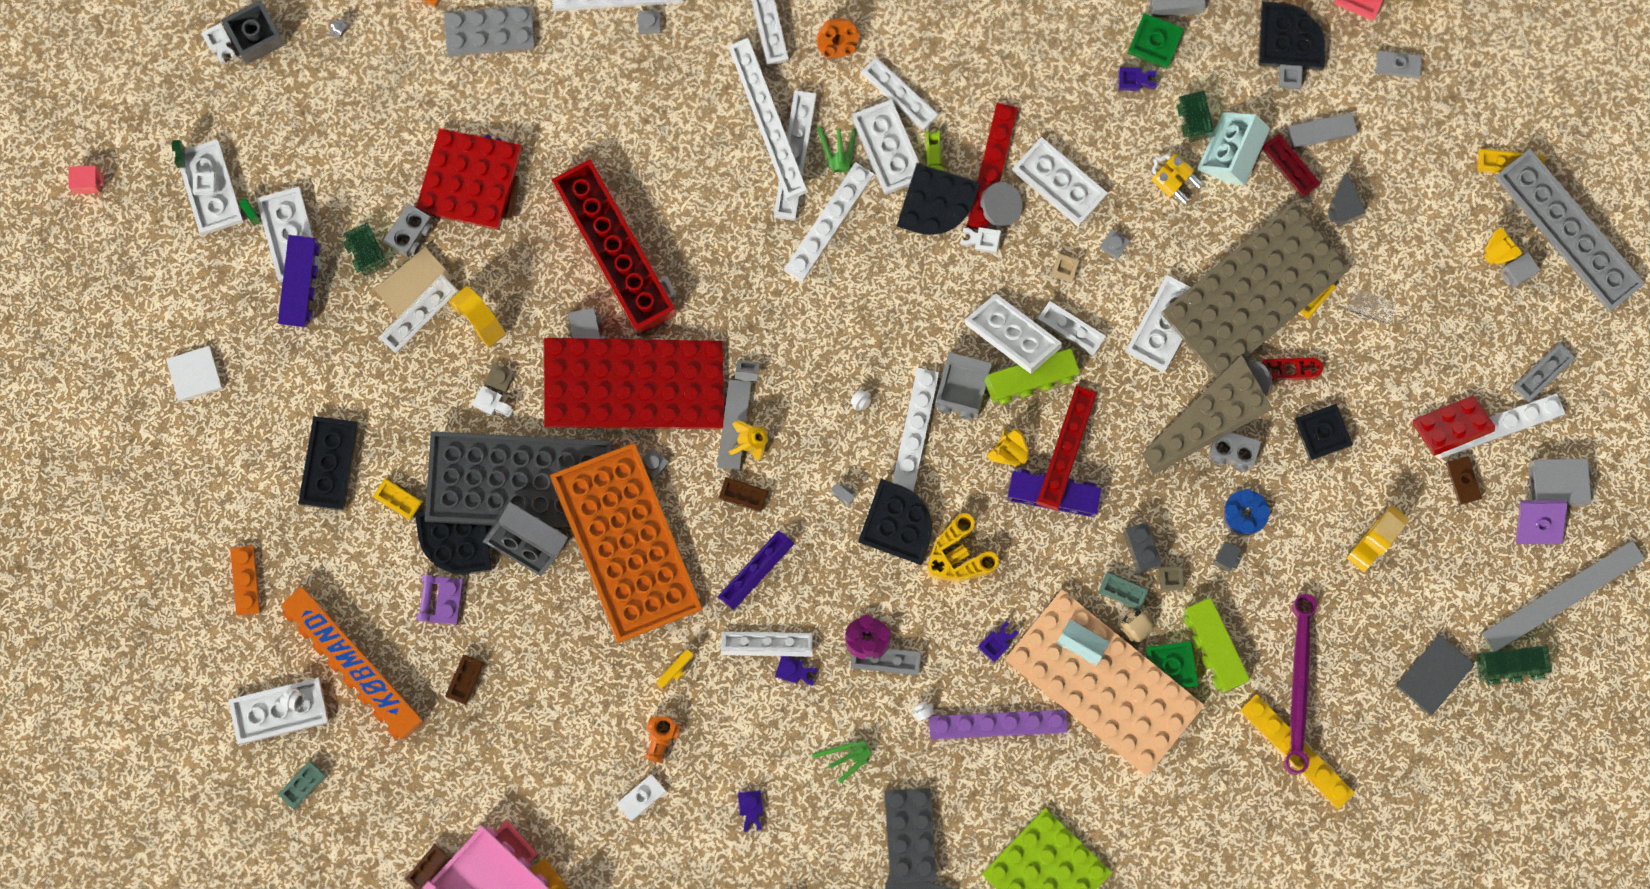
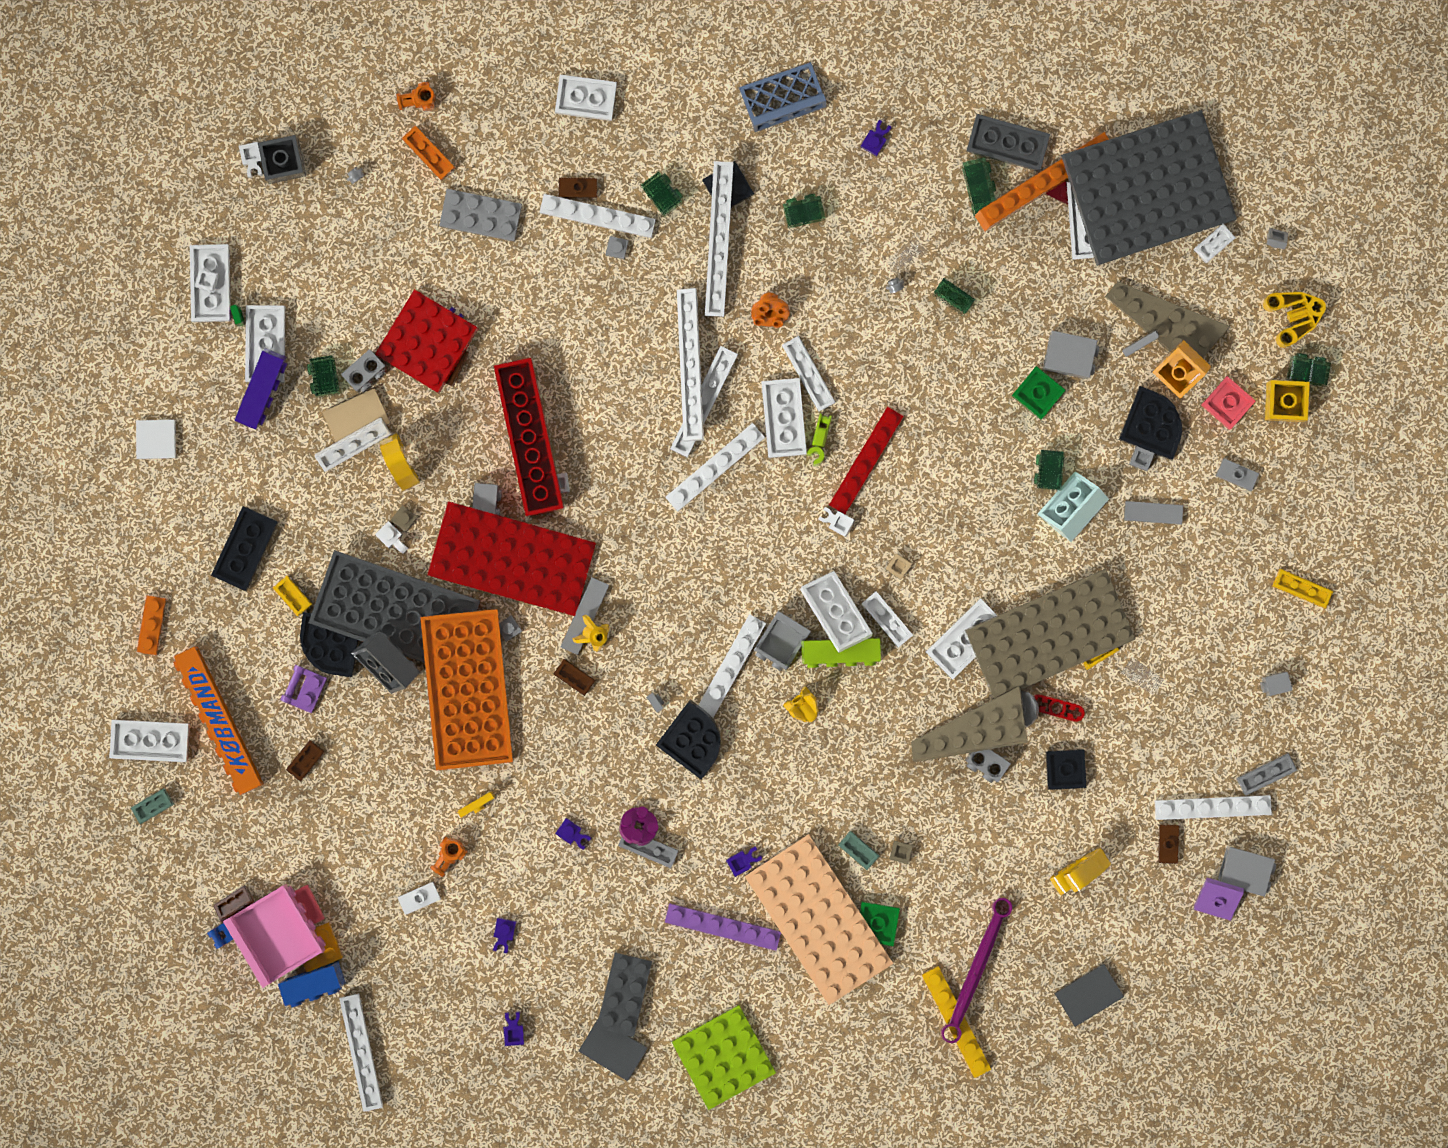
camera: 20 degrees right, 10 degrees up
(85, 179) = (109, 246): coral brick -> none
(179, 149) = (192, 244): dark green tile -> none
(292, 699) = (162, 737): white plate -> none
(747, 370) = (608, 574): light grey plate -> none
(755, 570) = (565, 742): dark purple plate -> none
(767, 644) = (556, 805): white tile -> none
(840, 161) = (740, 418): bright green plant -> none
(858, 752) = (603, 916): bright green plant -> none
(861, 400) = (694, 627): white plate -> none
(922, 711) = (665, 898): white plate -> none
(936, 201) = (809, 478): black plate -> none
(966, 571) = (739, 795): yellow connector -> none
(1001, 204) = (862, 496): light grey tile -> none
(1059, 181) = (918, 491): white plate -> none
(1066, 448) = (849, 720): red tile -> none
(1077, 498) = (826, 753): dark purple brick -> none
(1083, 642) = (810, 884): light aqua panel -> none
(1114, 244) = (946, 558): light grey plate -> none
(1132, 79) = (1008, 420): dark purple plate -> none
(1136, 625) = (860, 881): tan head -> none
(1142, 548) = (885, 821): dark grey brick -> none
(1173, 175) = (1014, 514): yellow piece -> none
(1216, 646) = (918, 917): lime brick -> none
(1227, 557) = (952, 849): dark grey plate -> none
(1246, 499) = (983, 805): blue plate -> none
(1291, 166) = (1116, 536): dark red plate -> none
(1345, 203) = (1150, 582): dark grey slope -> none
(1453, 425) = (1175, 797): red plate -> none
(1501, 249) = (1267, 661): yellow brick -> none
(1513, 665) = (1155, 1007): clear green brick -> none
(1563, 596) = (1216, 963): light grey tile -> none
(1569, 230) = (1329, 662): light grey plate -> none

